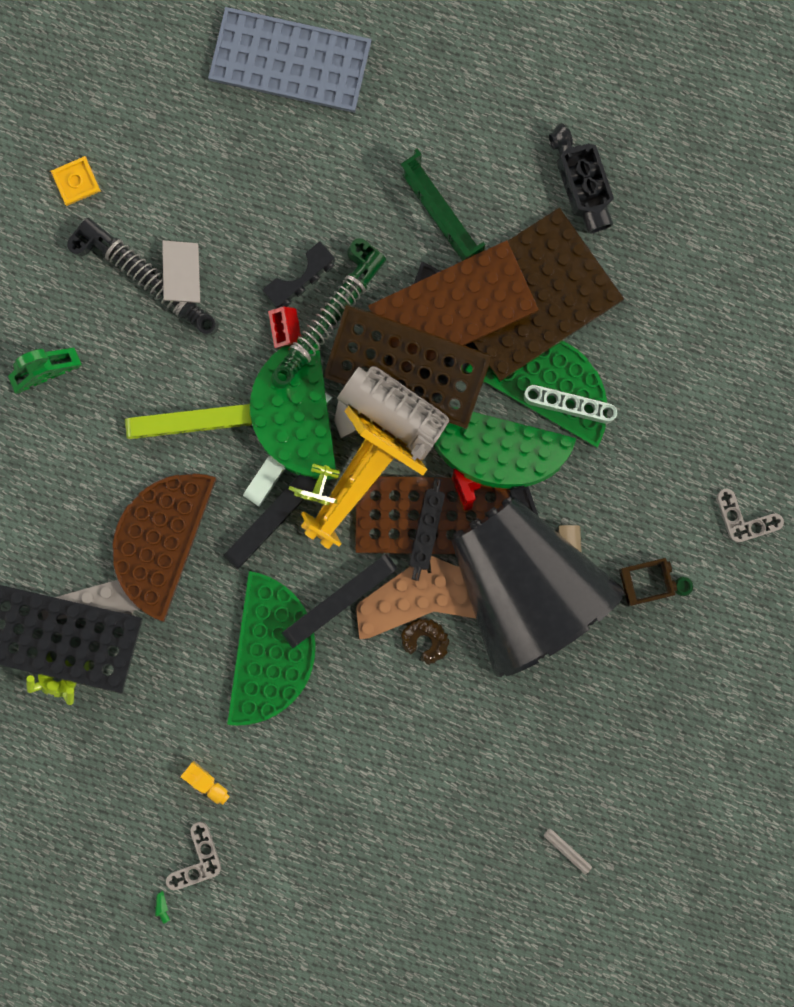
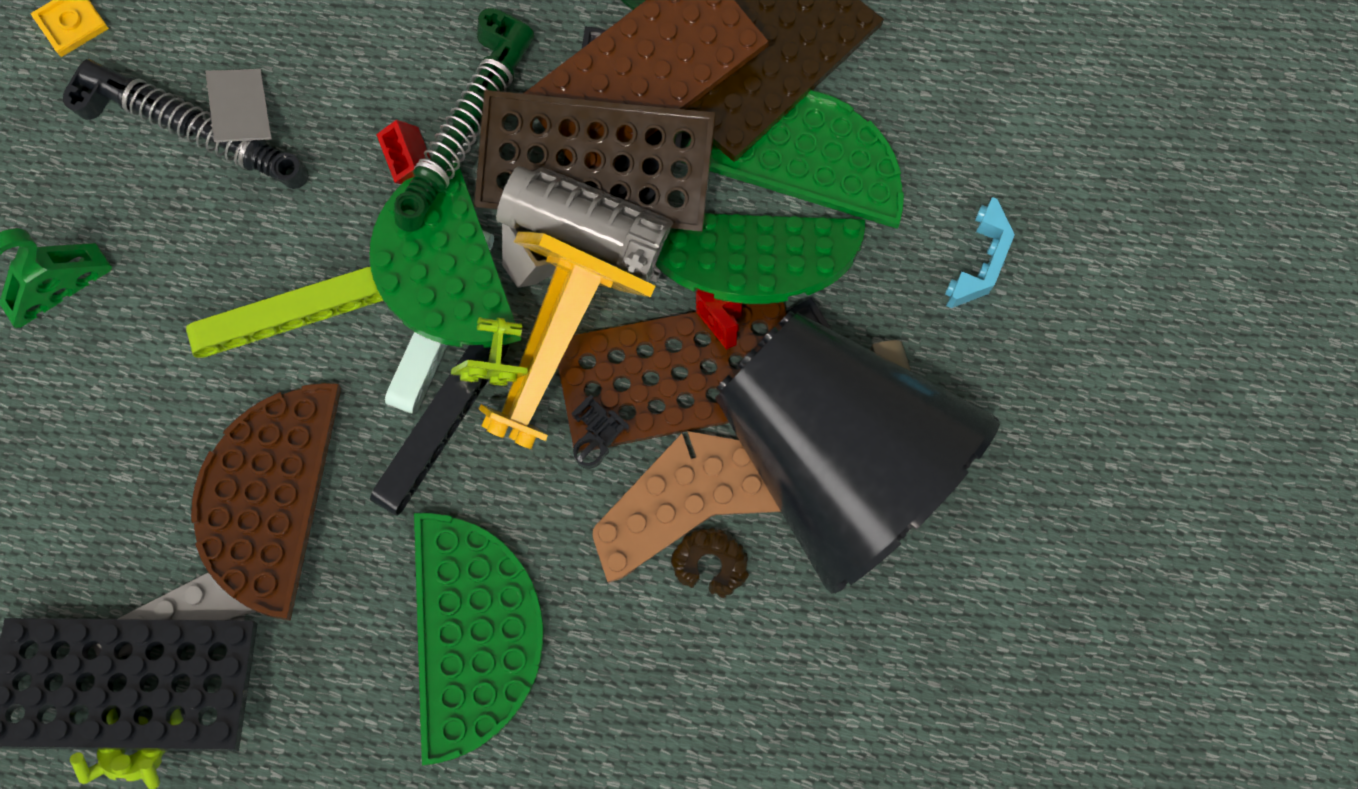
camera: 10 degrees left, 10 degrees down
(281, 292) = (438, 55): black arch -> none
(339, 601) = (561, 529): black beam -> none
(377, 544) = (603, 427): none -> black piece
(426, 529) = (675, 393): black plate -> none
(580, 402) = (856, 161): light aqua beam -> none
(628, 587) = (1047, 378): dark brown window -> none
(658, 459) = (996, 226): none -> medium azure slope
(684, 586) = (1079, 397): dark green plate -> none
(739, 524) = (1134, 290): light grey beam -> none

